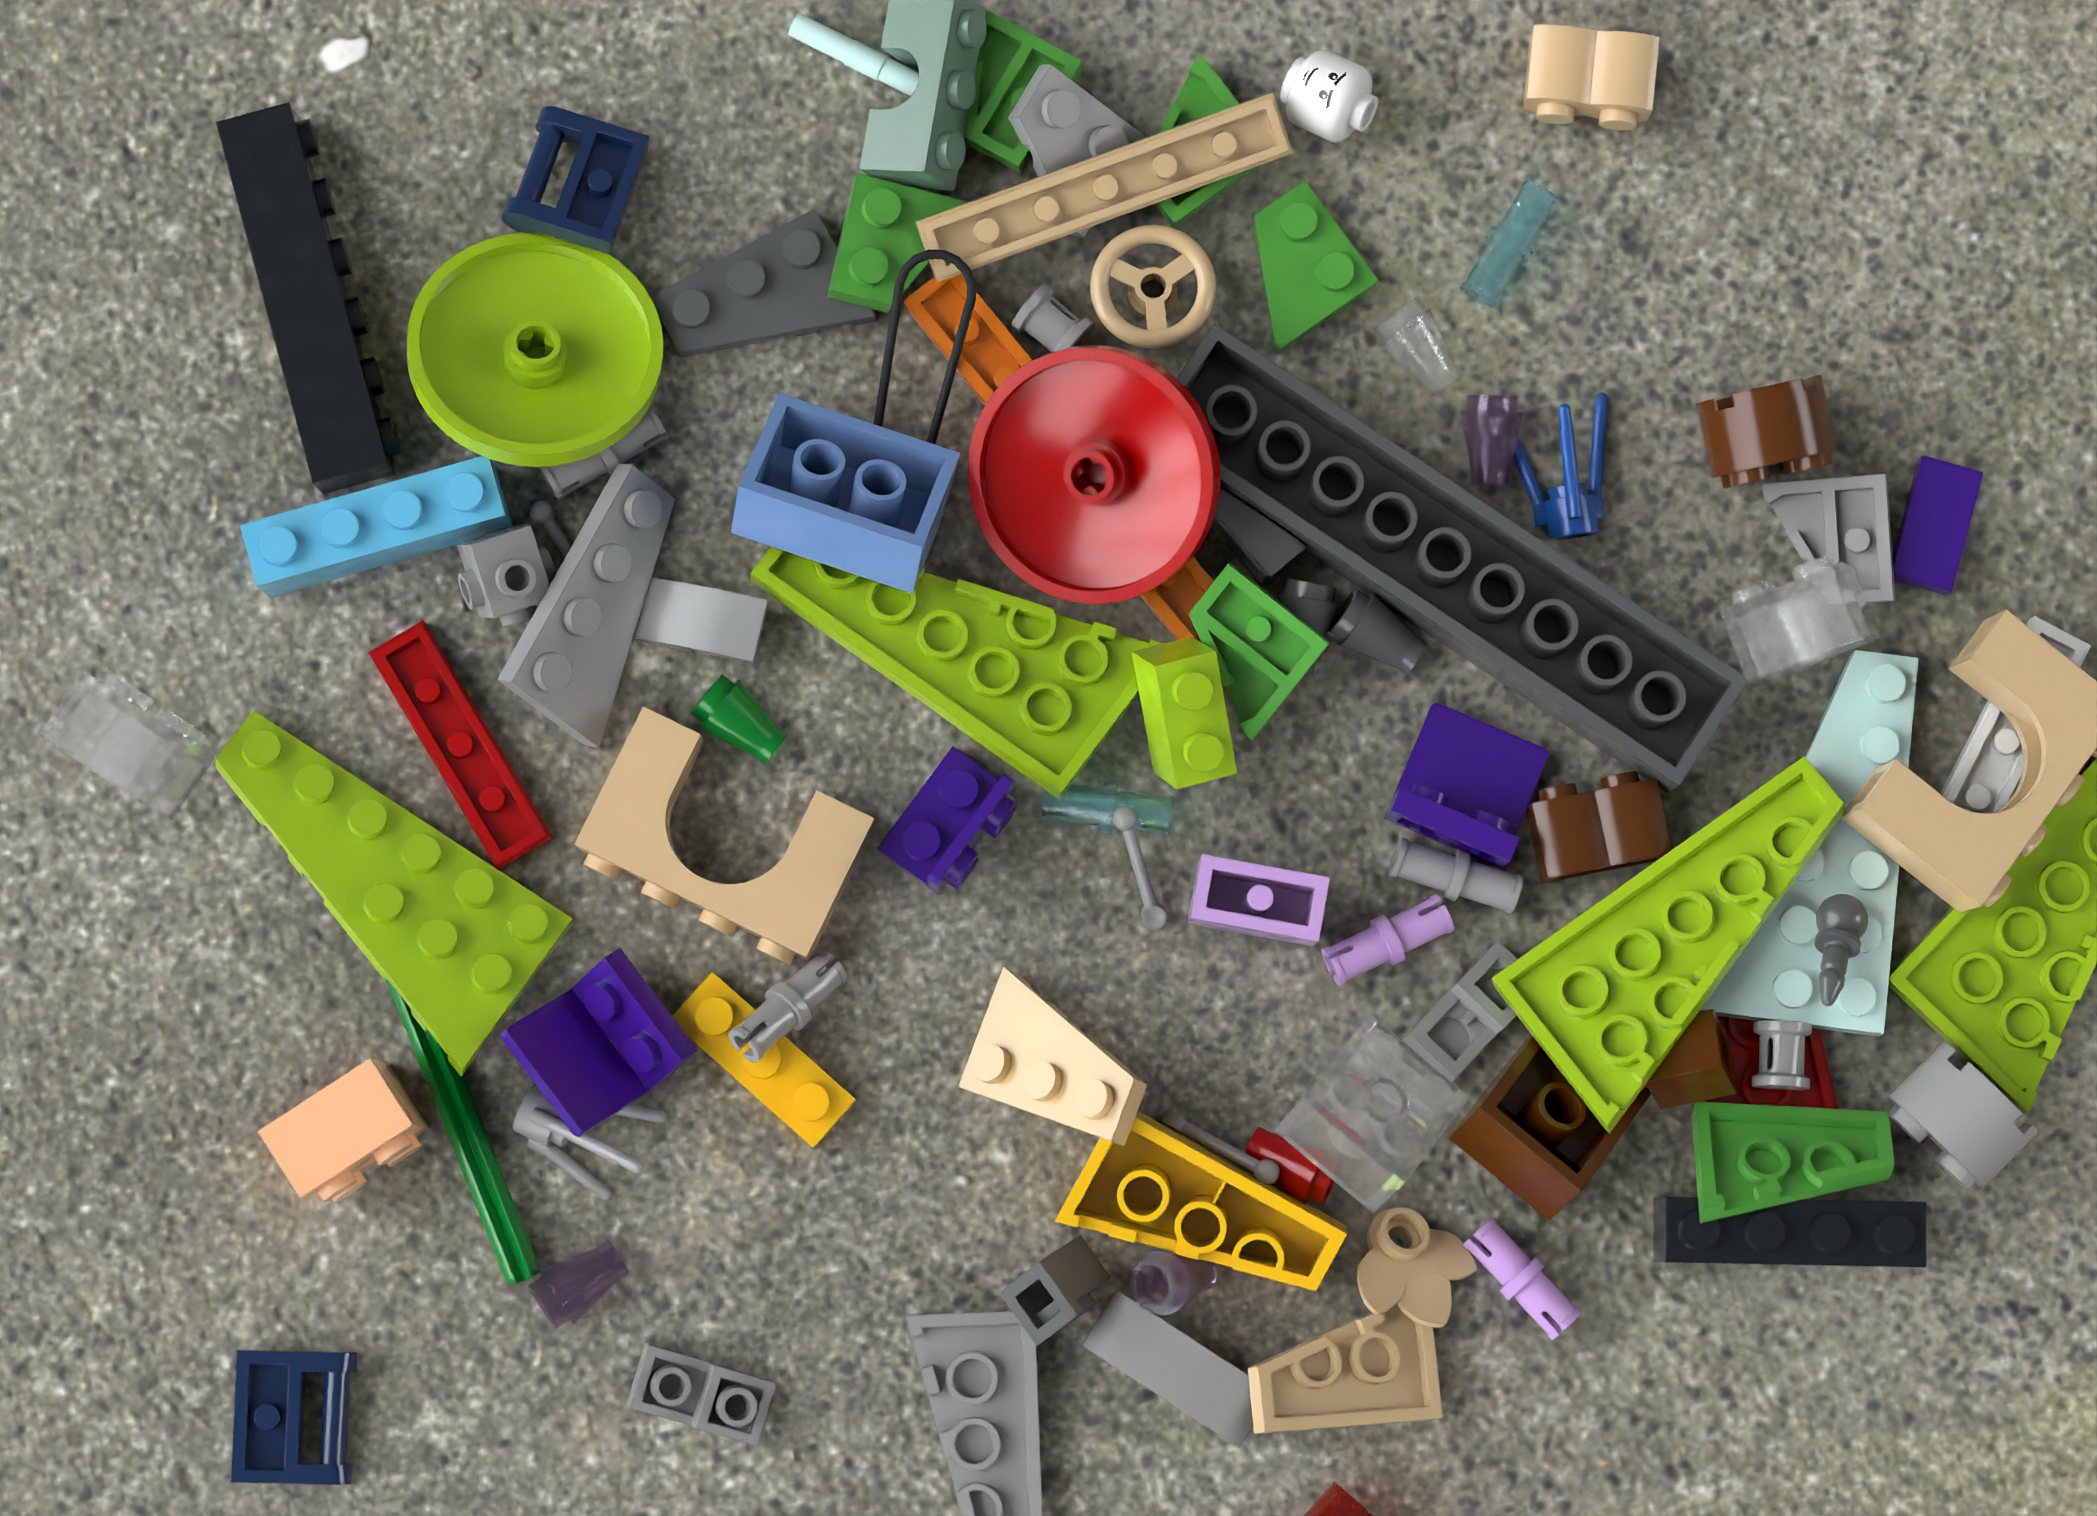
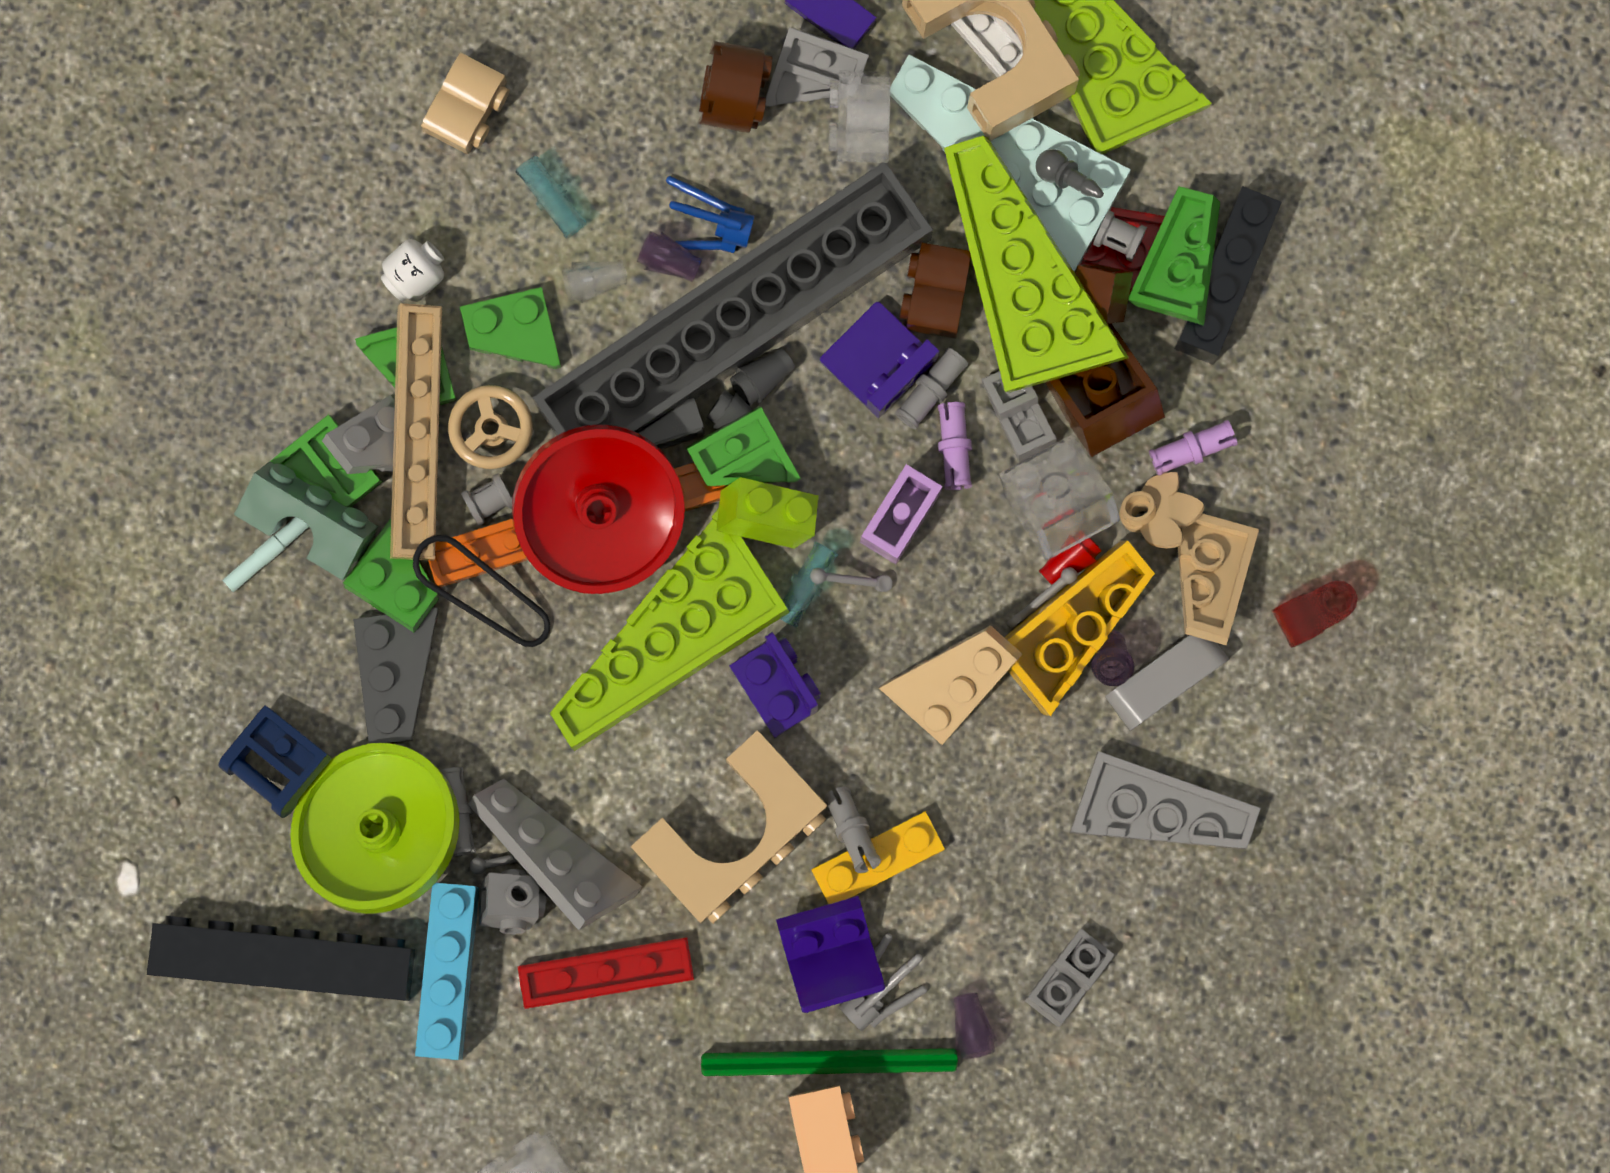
camera: 65 degrees left, 0 degrees up
(415, 902) = (690, 1040): lime wing -> none
(701, 620) = (587, 791): light grey slope -> none
(738, 719) = (659, 792): green cone -> none
(844, 492) = (546, 668): medium blue brick -> none
(1056, 1290) = (1092, 732): dark grey brick -> none
(1961, 1116) = (1199, 143): light grey brick -> none

